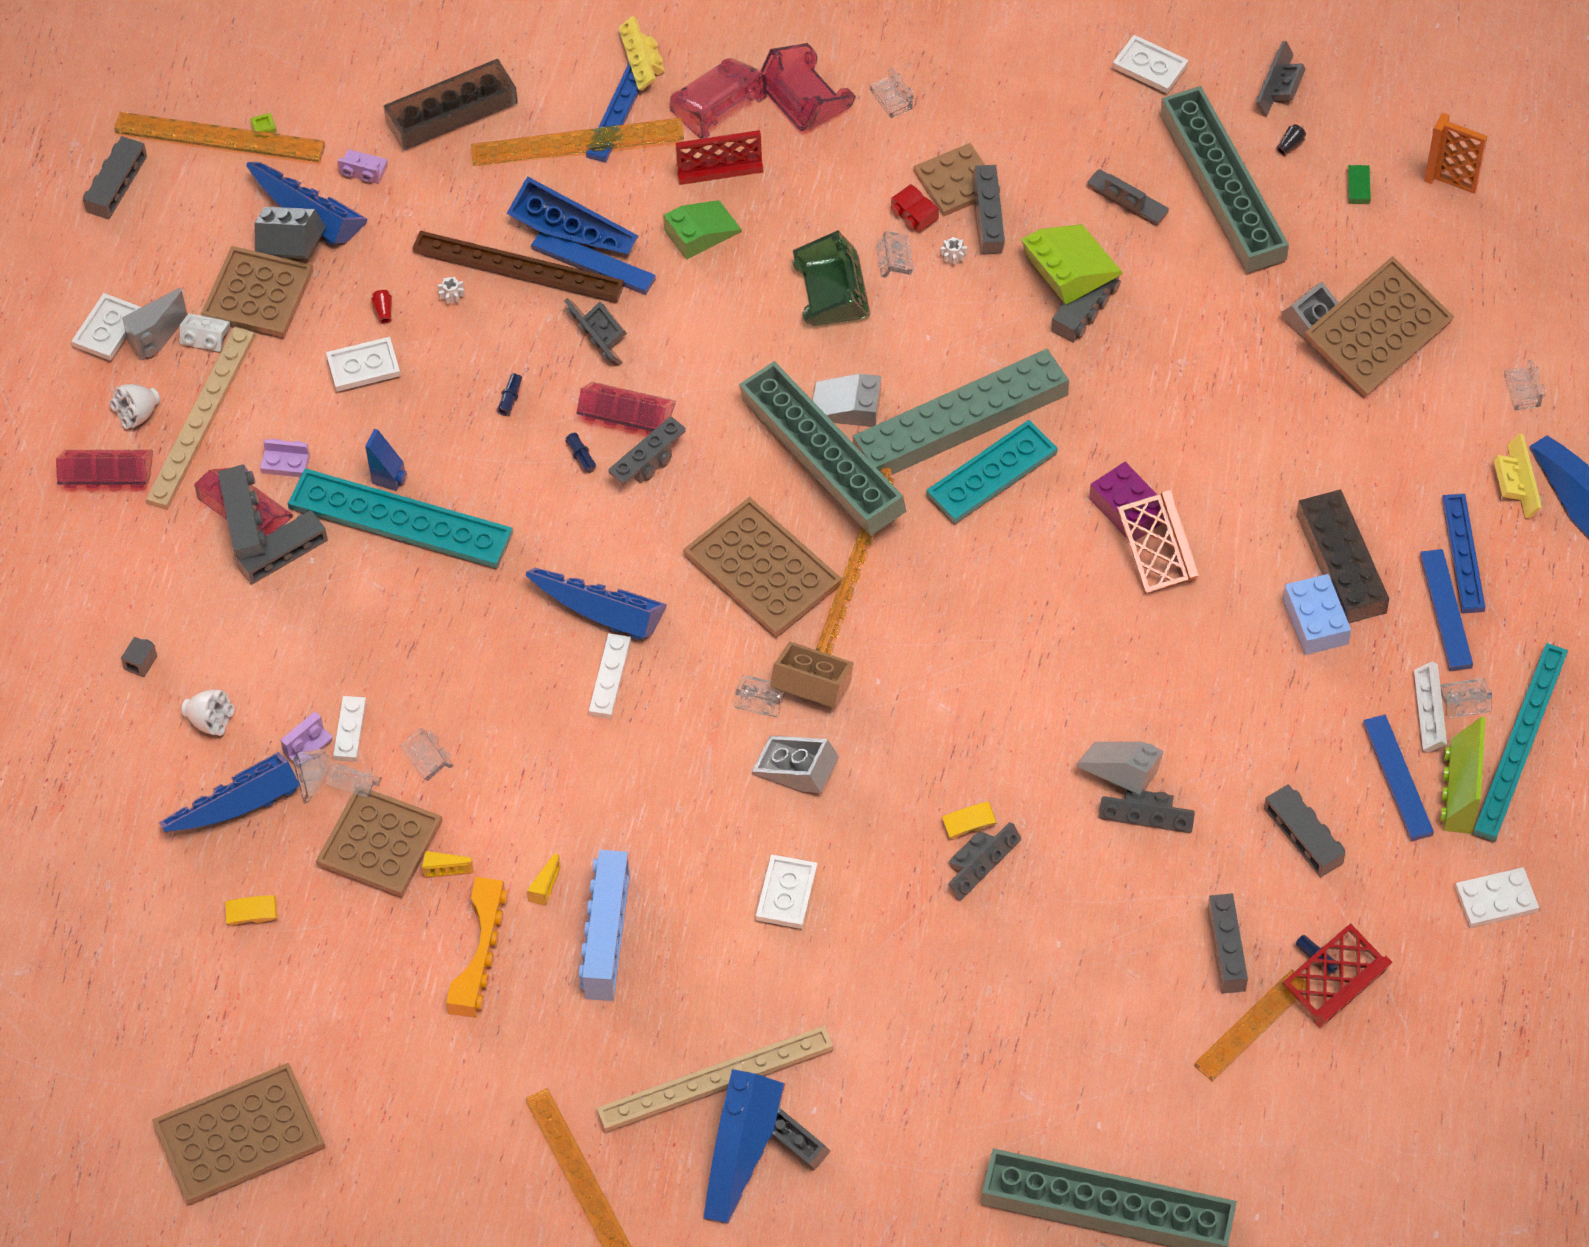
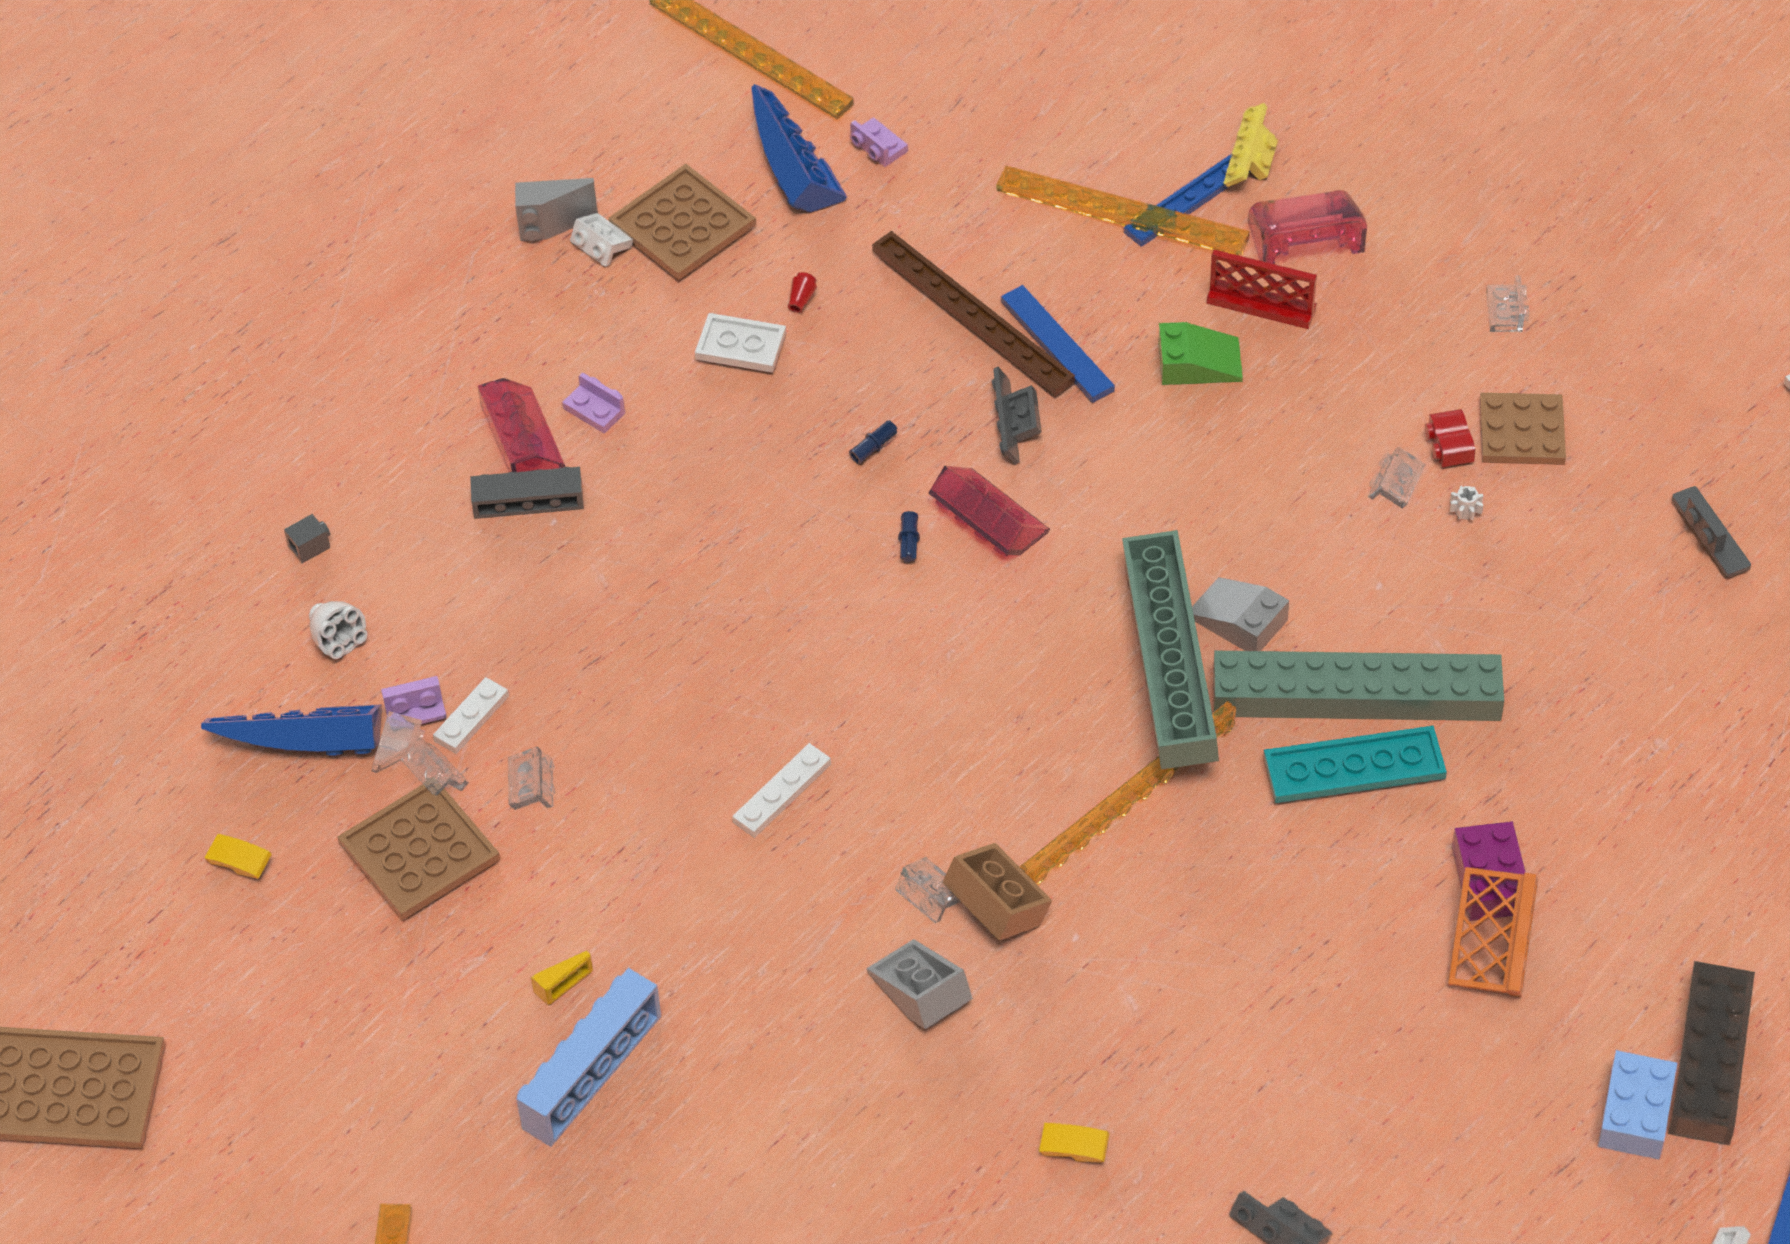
camera: 30 degrees right, 5 degrees down
(104, 328) = (494, 194): white plate -> none
(104, 468) = (405, 330): clear pink slope -> none
(114, 177) = (616, 46): dark grey brick -> none
(133, 404) = (478, 279): white piece -> none
(200, 418) = (538, 325): tan plate -> none
(242, 511) = (500, 433): dark grey brick -> none
(263, 123) = (805, 56): lime tile -> none
(287, 232) = (749, 172): dark grey slope -> none
(384, 463) = (685, 449): blue slope -> none
(401, 518) = (672, 520): teal plate -> none
(443, 864) = (464, 905): yellow slope -> none
(450, 104) = (1009, 115): clear smoke brick -> none
(451, 290) = (883, 306): white gear -> none
(466, 990) = (400, 1053): light orange arch -> none
(566, 219) = (1052, 284): blue wedge -> none
(618, 609) = (836, 725): blue wedge -> none
(648, 454) = (976, 571): dark grey bracket -> none
(762, 566) = (1025, 750): medium nougat plate -> none
(786, 891) = (815, 1120): white plate -> none
(800, 89) = (1405, 254): clear pink windscreen -> none
(832, 280) = (1309, 475): clear green windscreen -> none
(980, 857) = (1058, 1192): dark grey bracket -> none
(988, 209) = (1532, 473): dark grey brick -> none
(1069, 260) = (1592, 569): lime slope -> none
(1074, 317) = (1585, 624): dark grey brick -> none
(1123, 763) = (1292, 1165): light grey slope -> none

